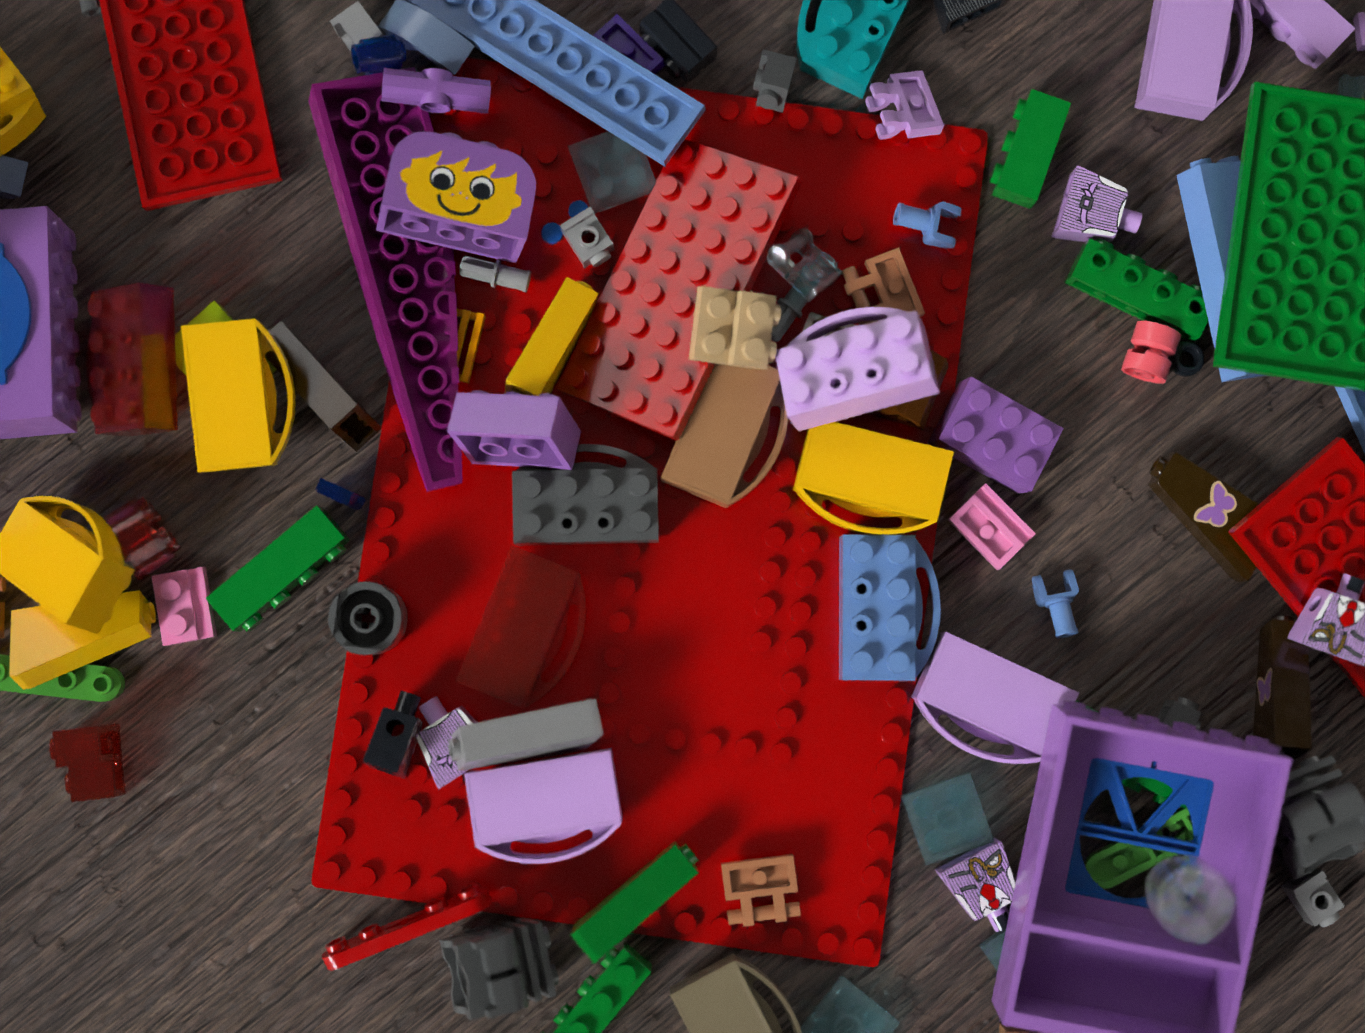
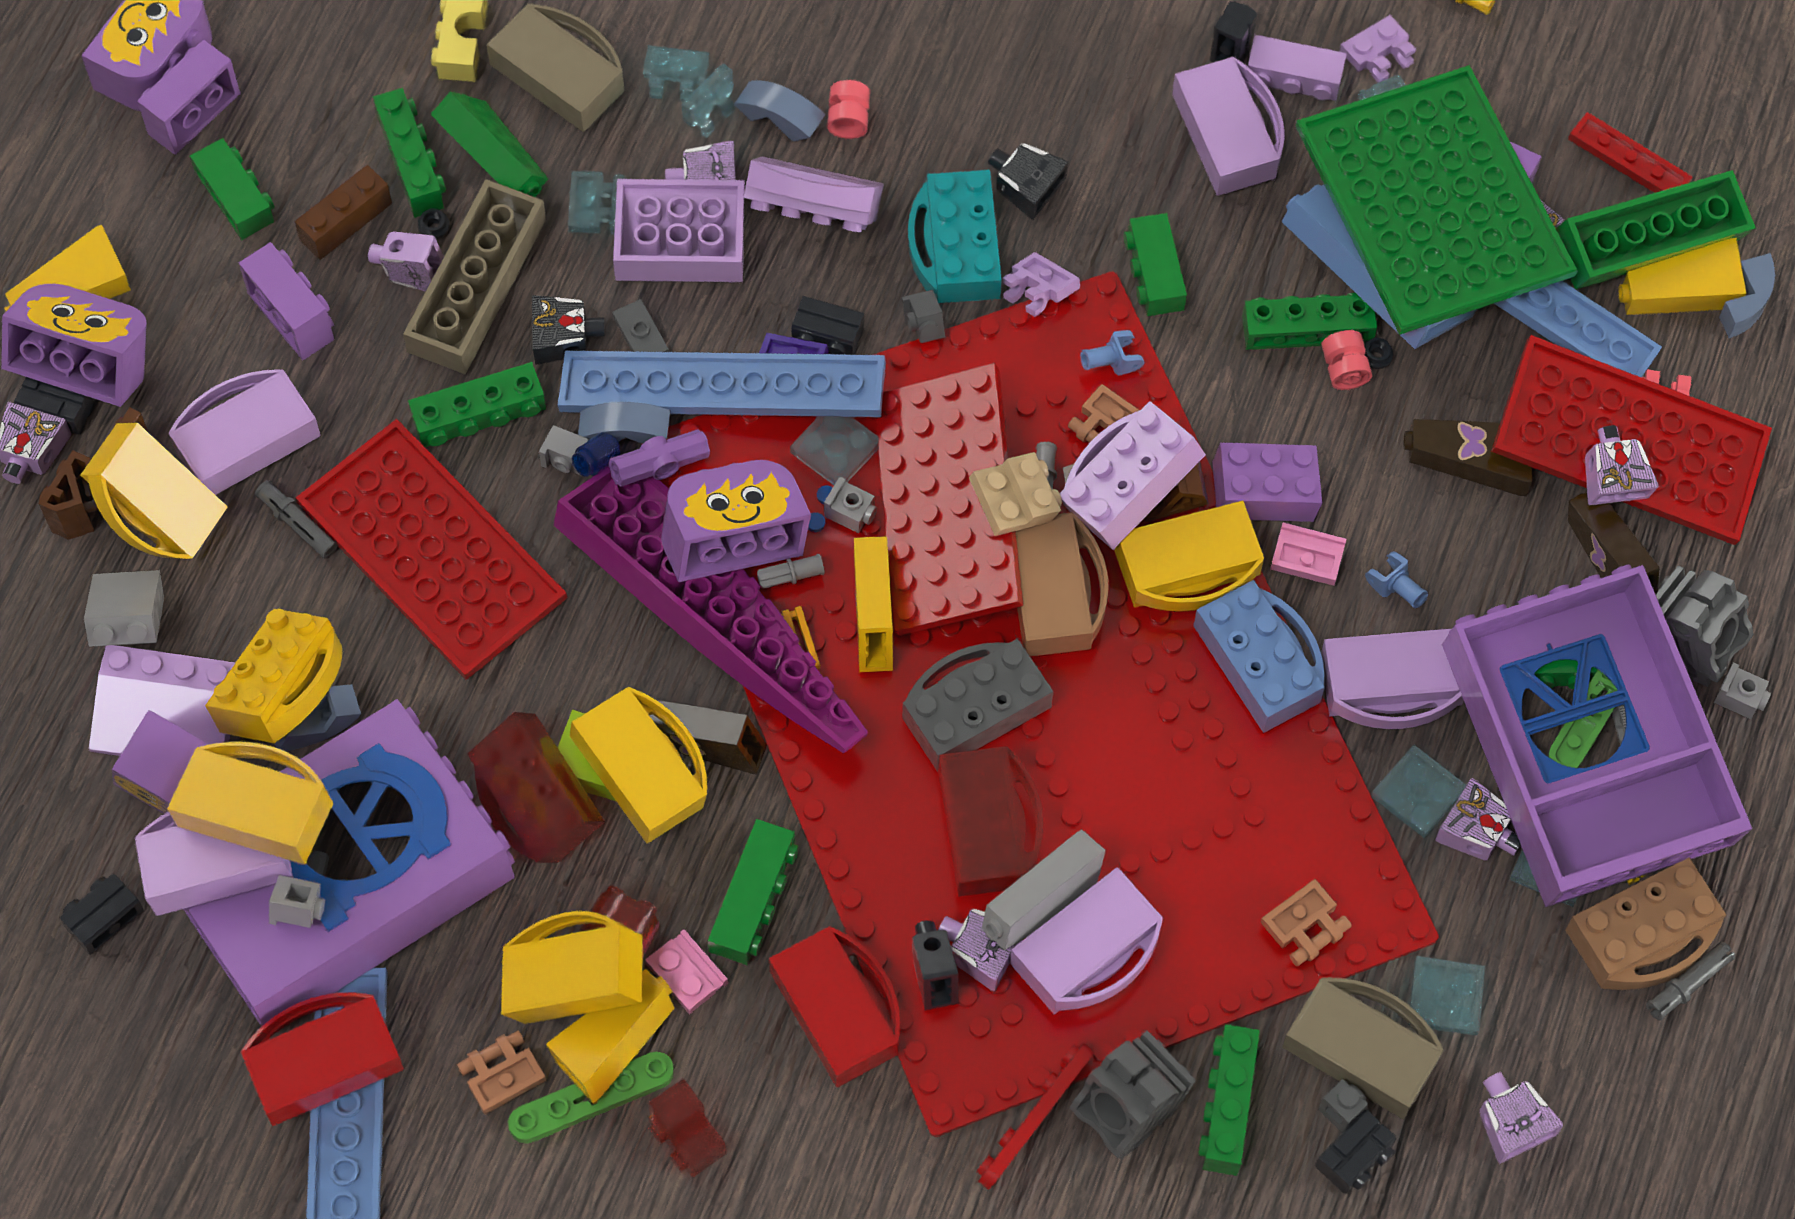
camera: 30 degrees left, 20 degrees down
(290, 723) = (838, 1003): none -> red piece
(340, 494) = (770, 801): clear blue tile -> none
(347, 623) = (869, 874): dark grey brick -> none
(514, 430) = (887, 667): medium lavender brick -> none
(634, 901) = (1209, 983): green slope -> none
(810, 274) = (1045, 433): clear light blue plate -> none
(1093, 209) = (1232, 280): lavender torso -> none
(1202, 915) = (1648, 692): clear brick -> none

